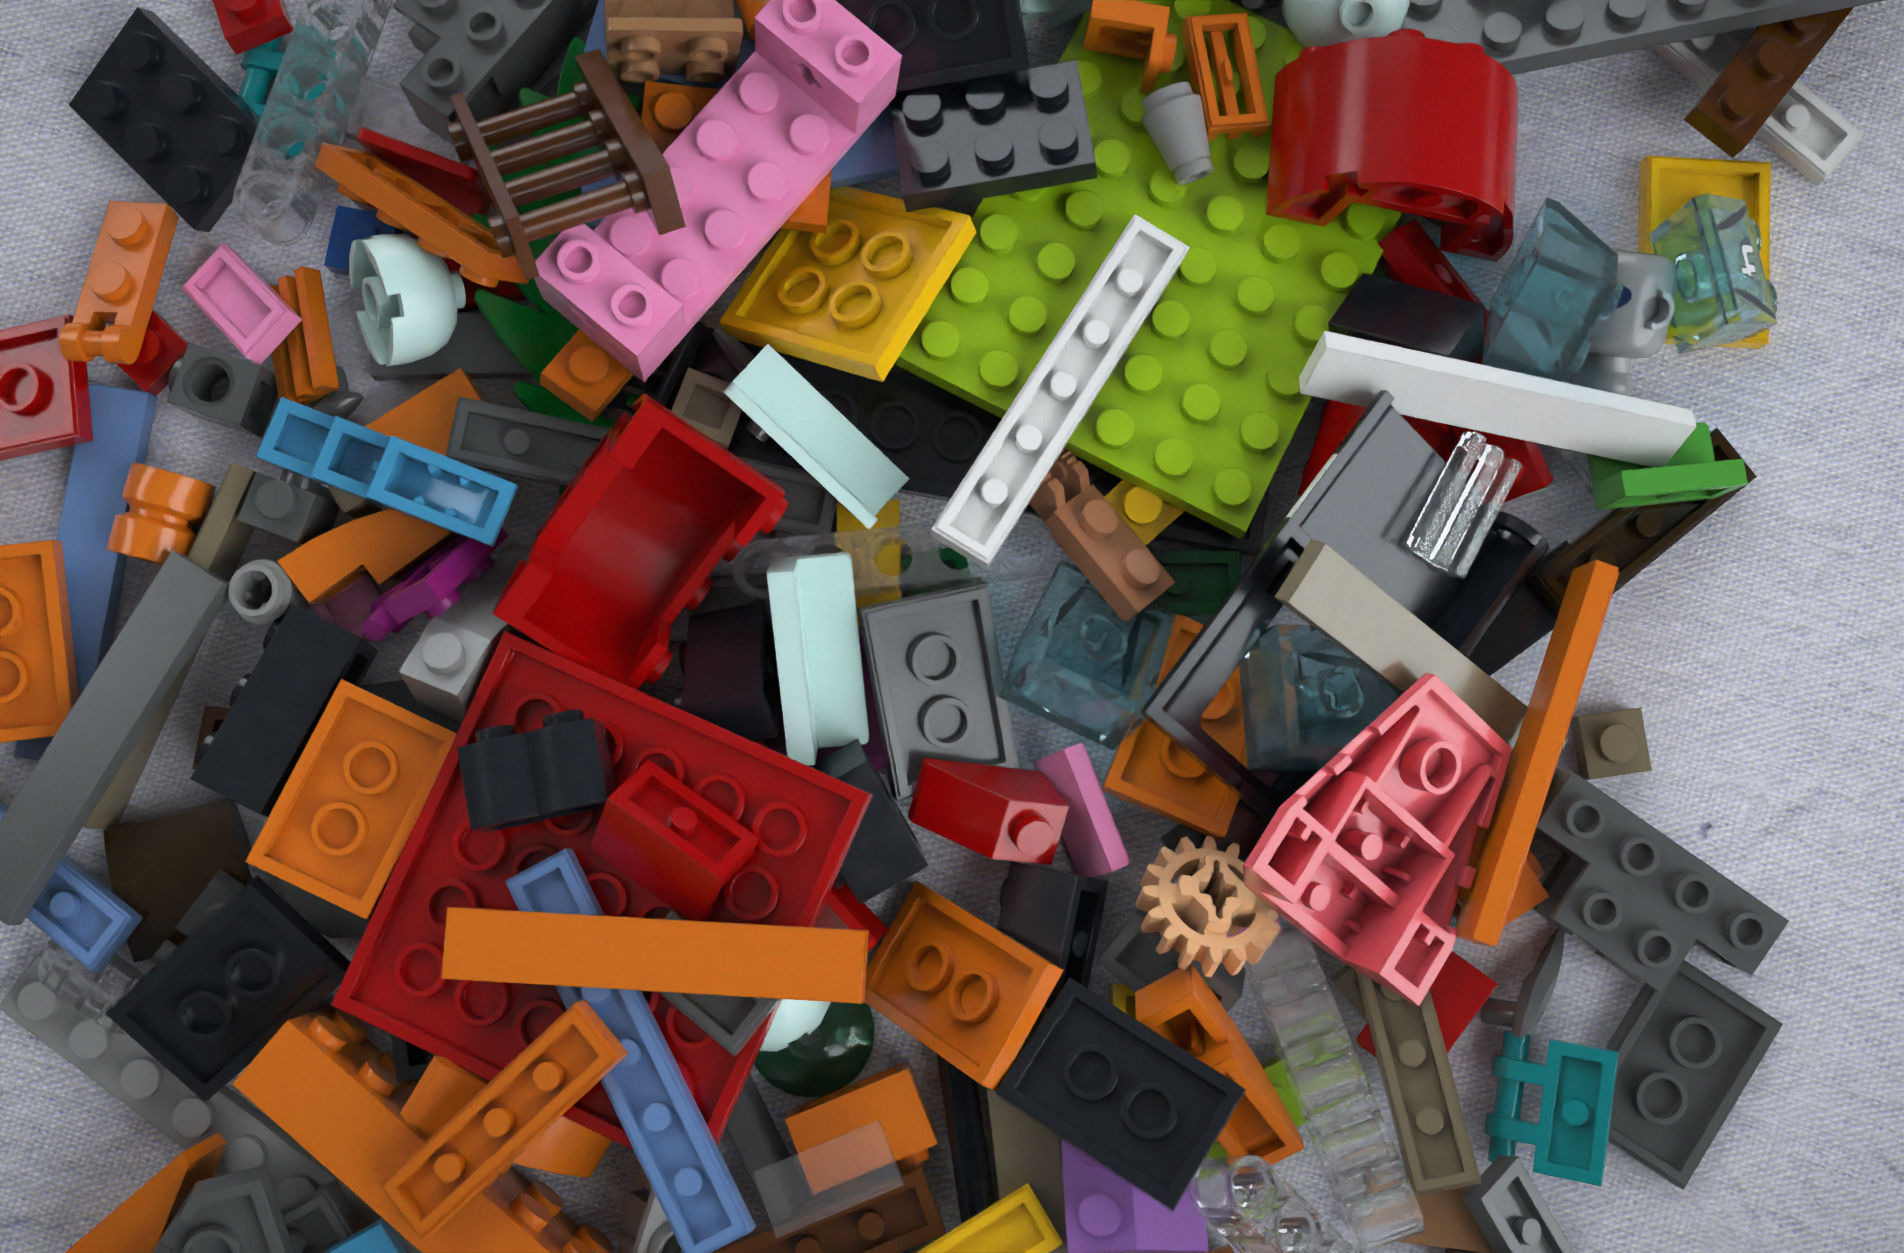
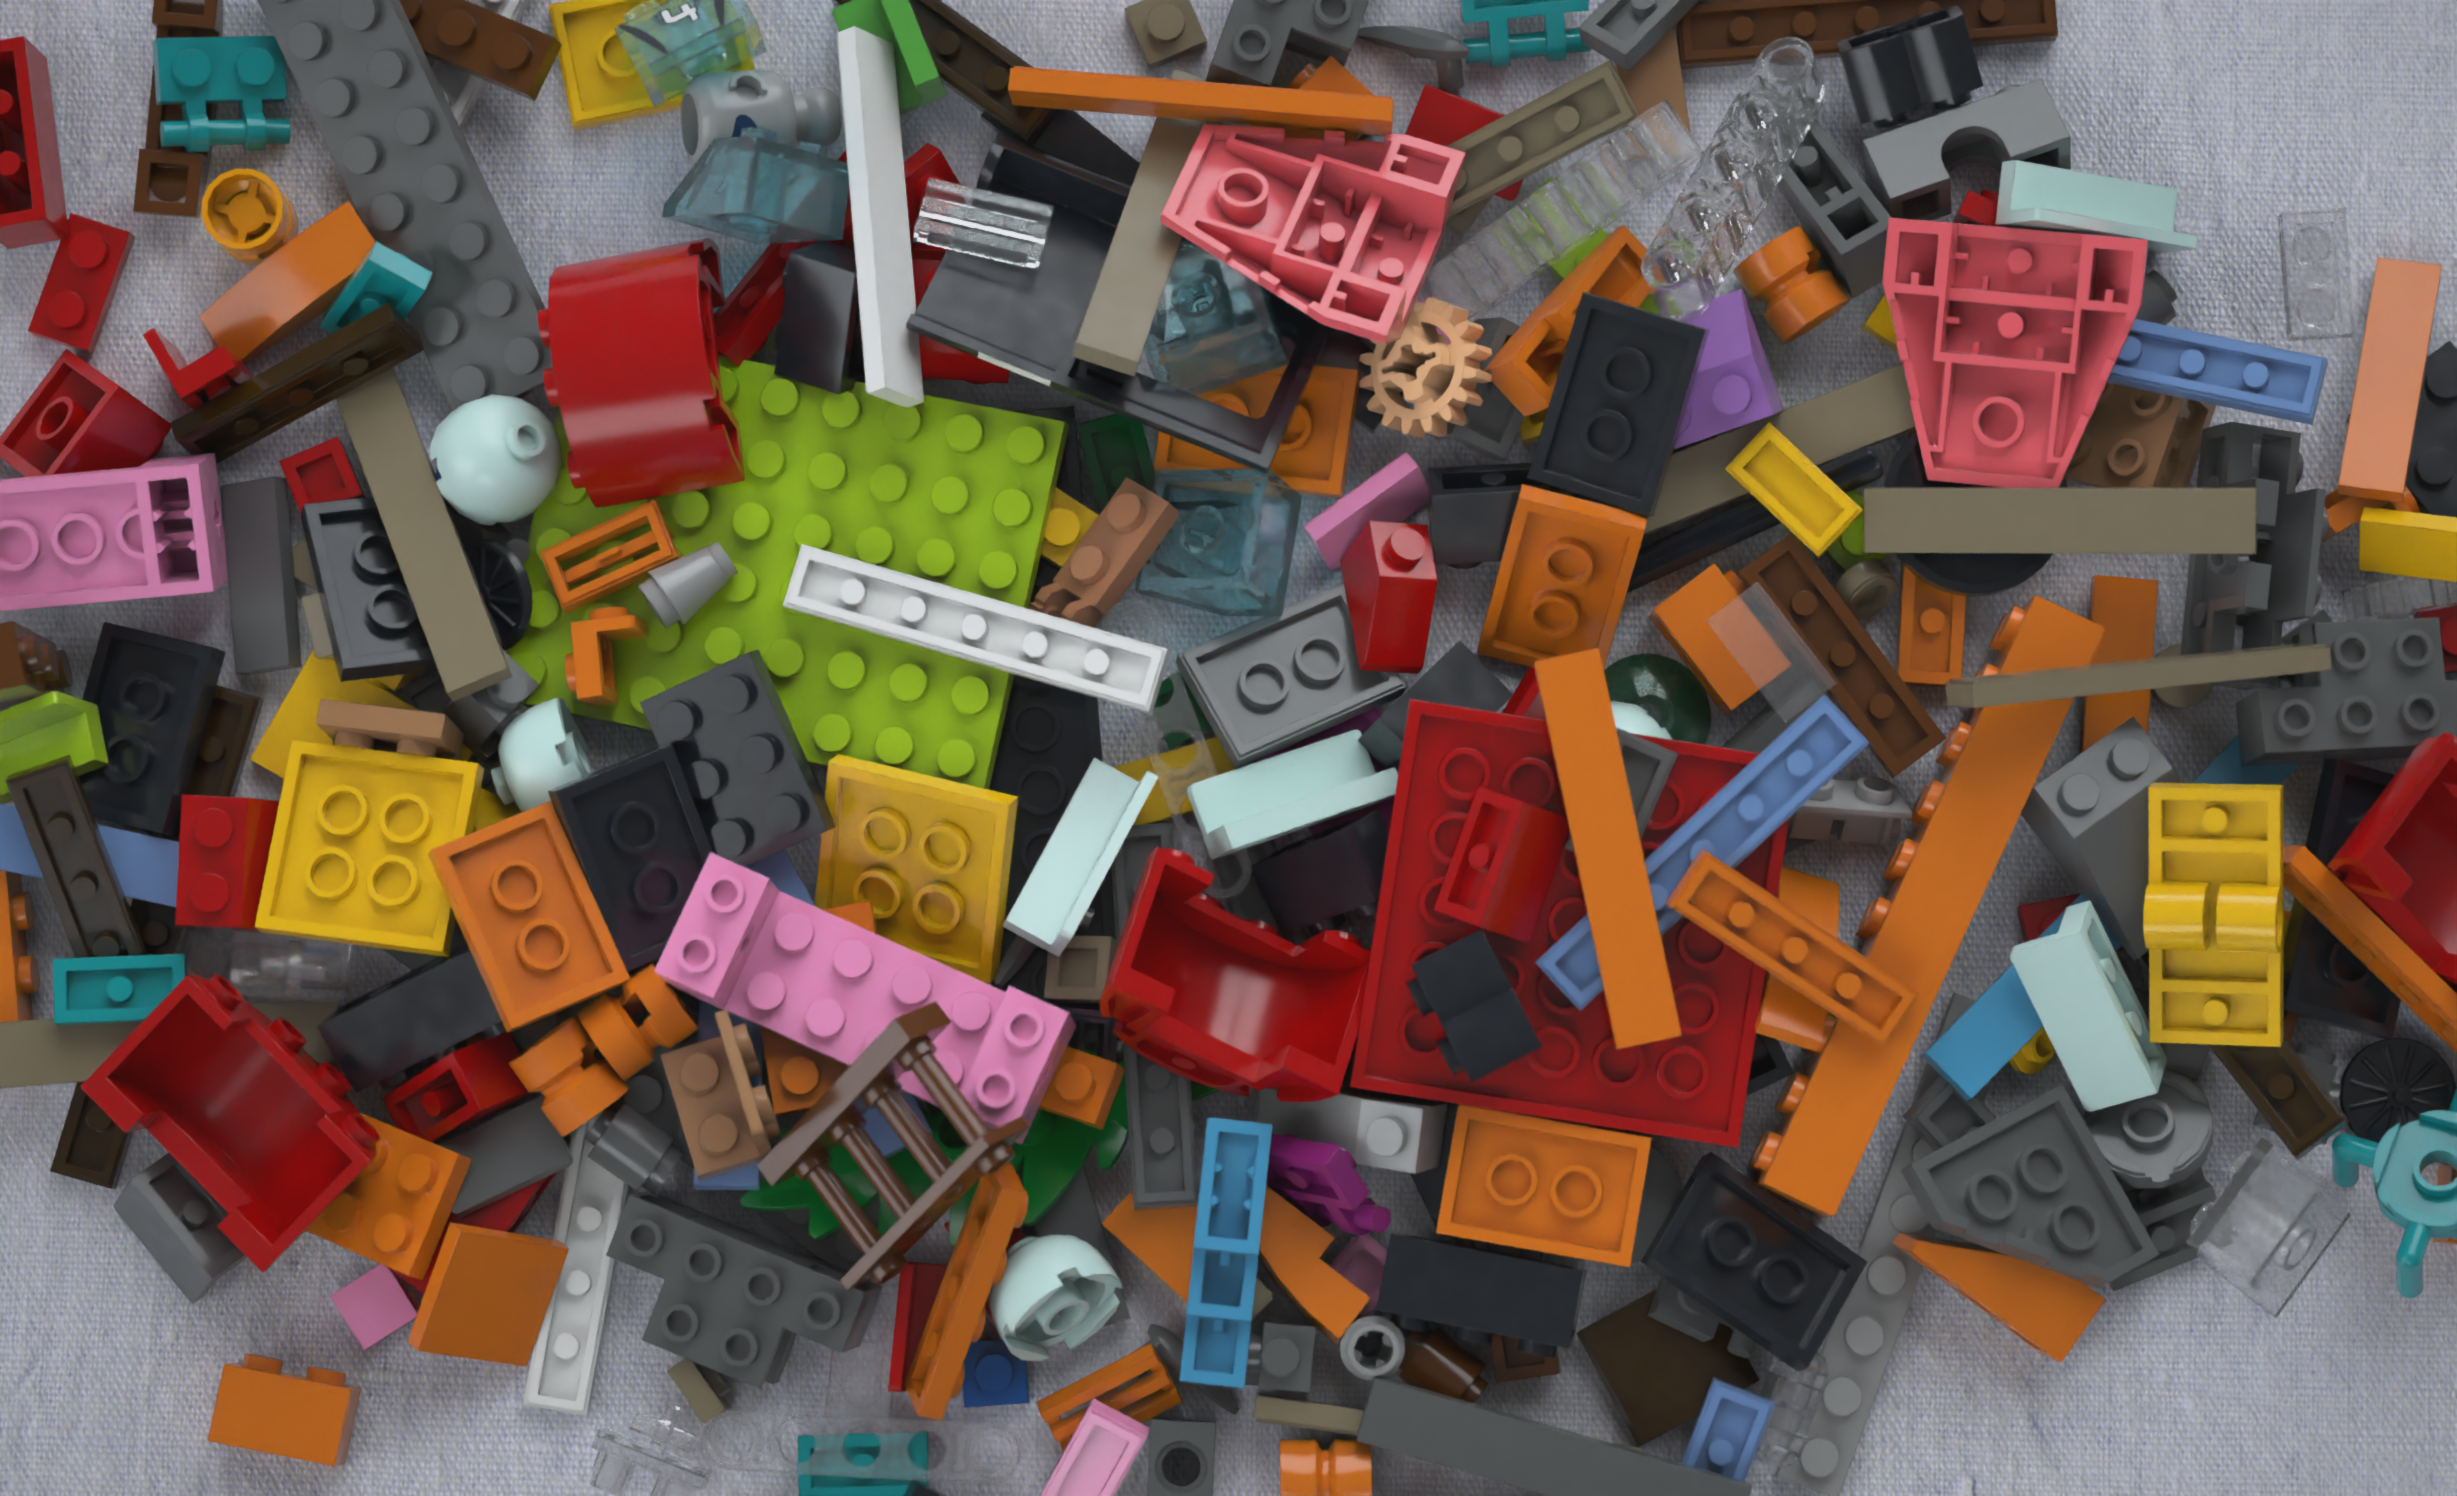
camera: 100 degrees left, 0 degrees up
(226, 657) = (1442, 1366): none -> reddish brown brick

